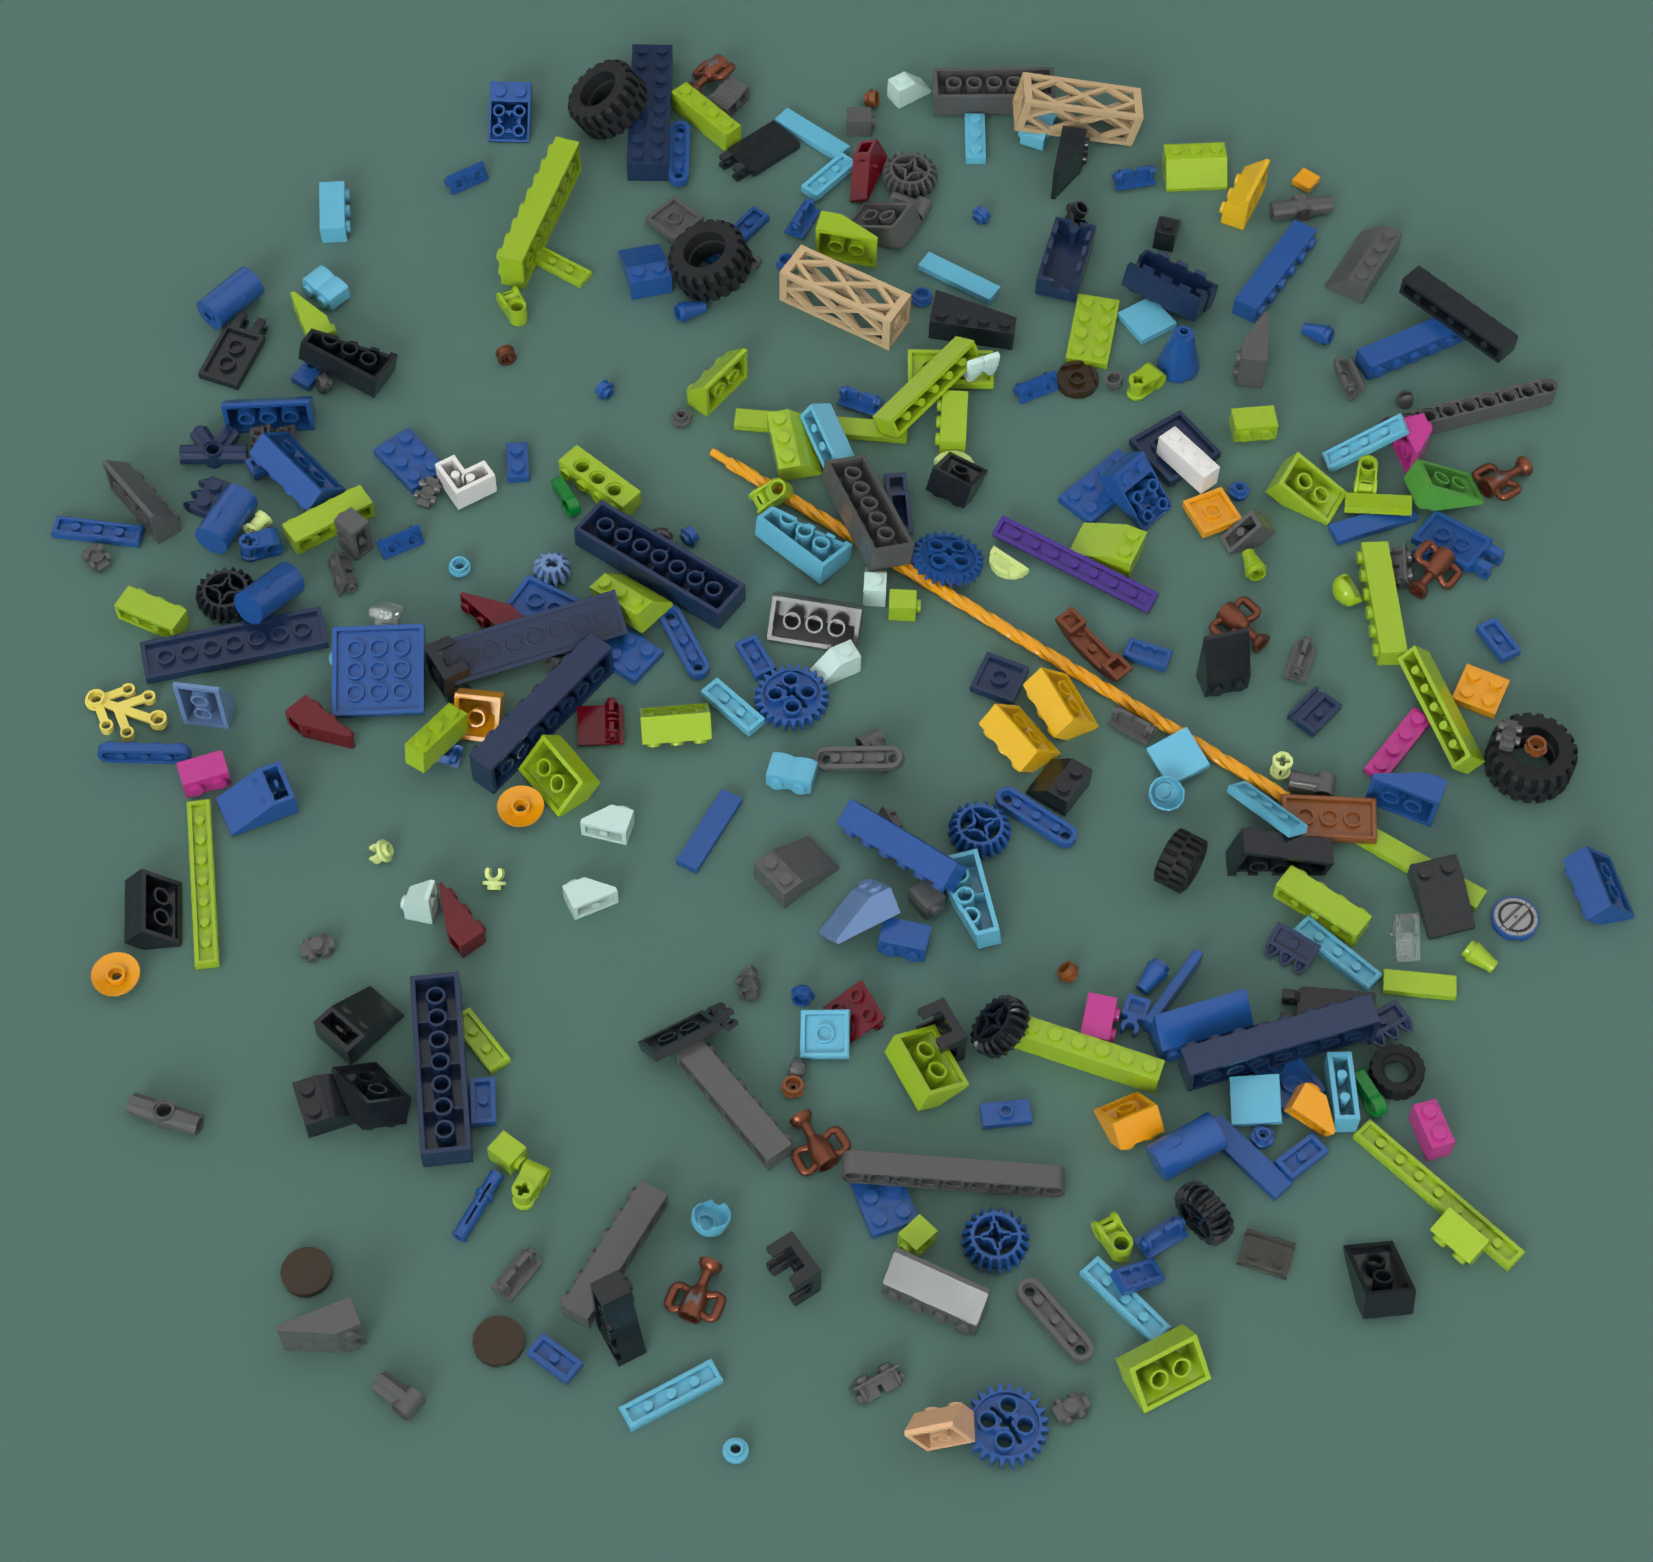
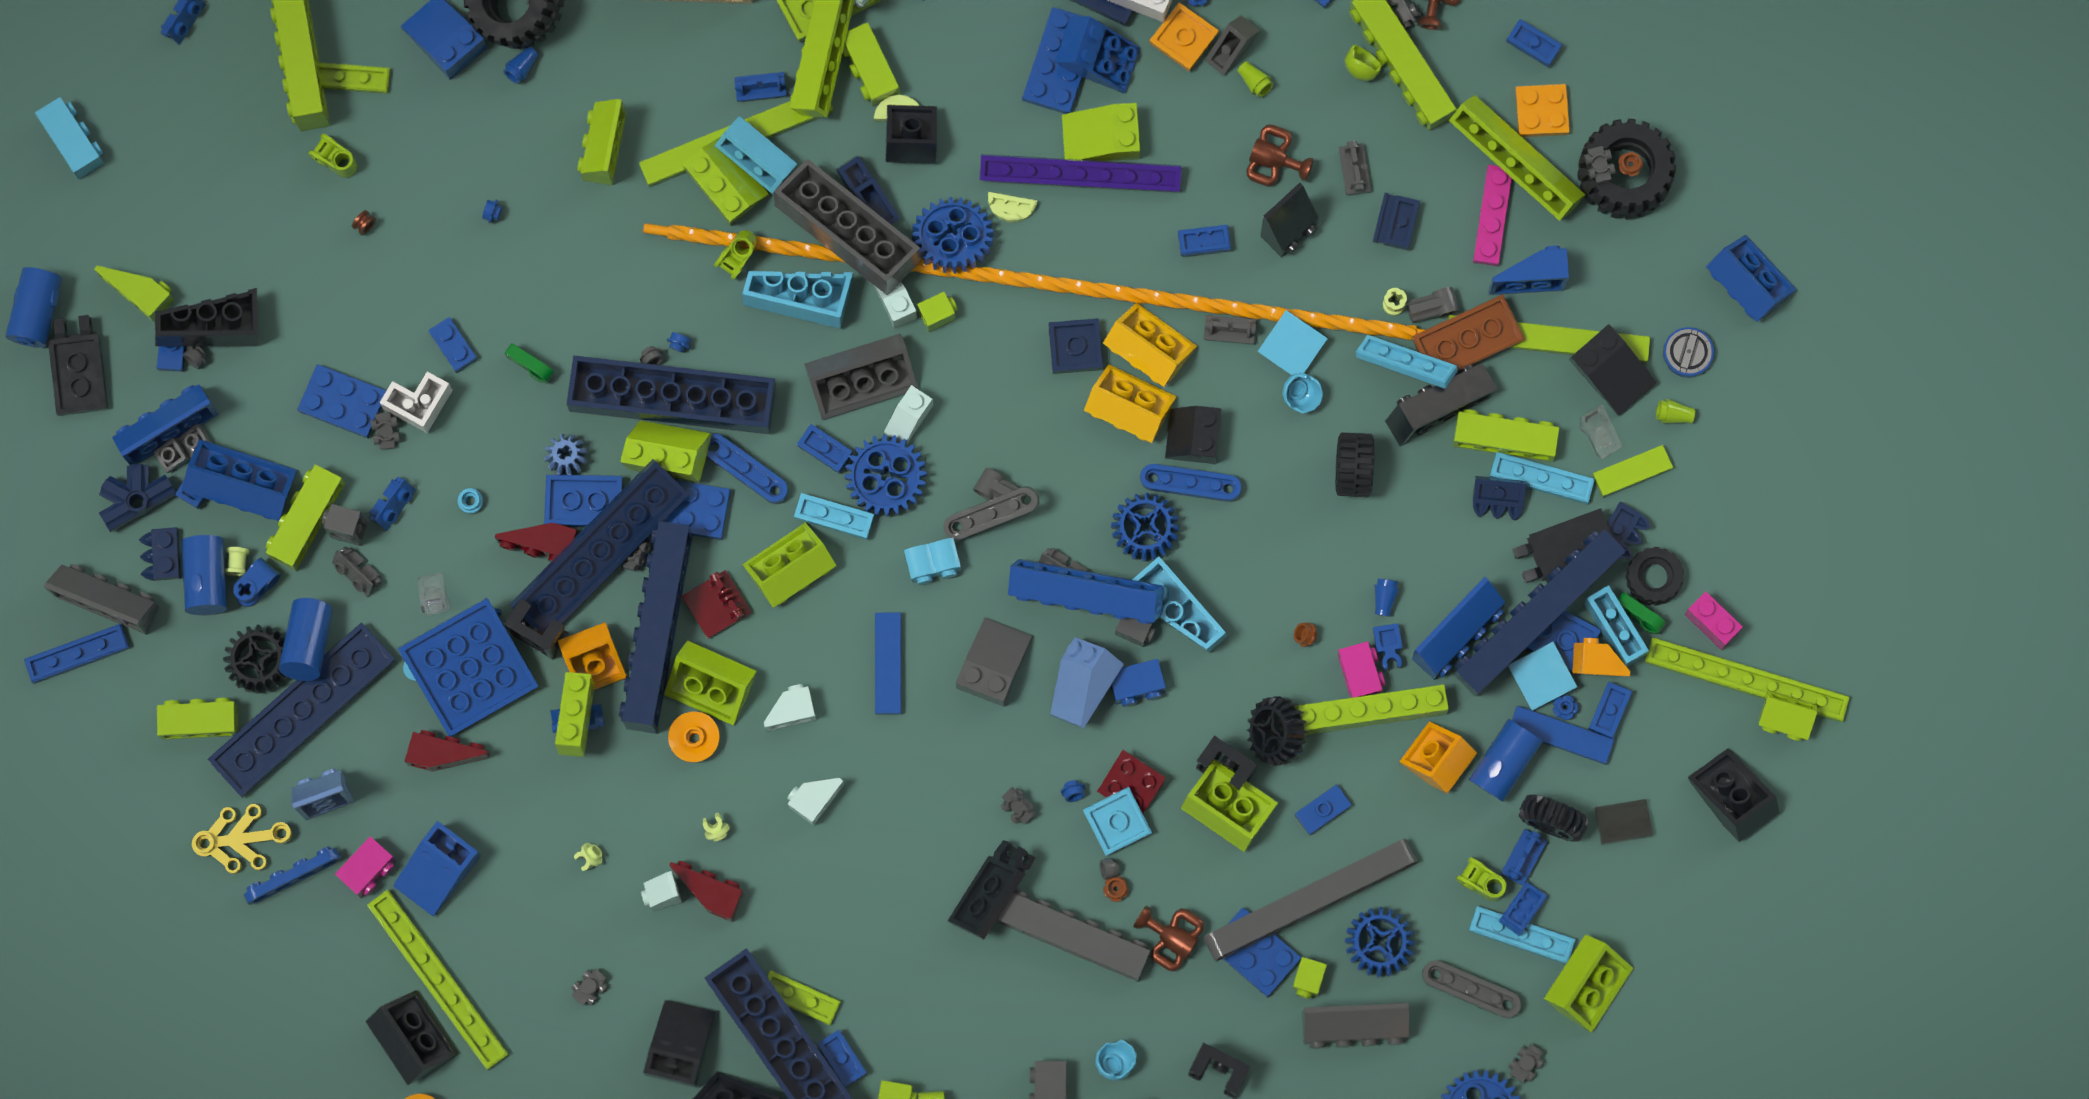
camera: 25 degrees left, 20 degrees up
(97, 559) = (101, 688): dark grey piece -> none
(325, 288) = (123, 239): medium azure brick -> none
(599, 480) = (517, 312): lime brick -> none
(681, 418) = (588, 209): dark grey plate -> none
(1090, 647) = (1147, 261): copper slope -> none
(1174, 988) = (1412, 602): blue tile -> none

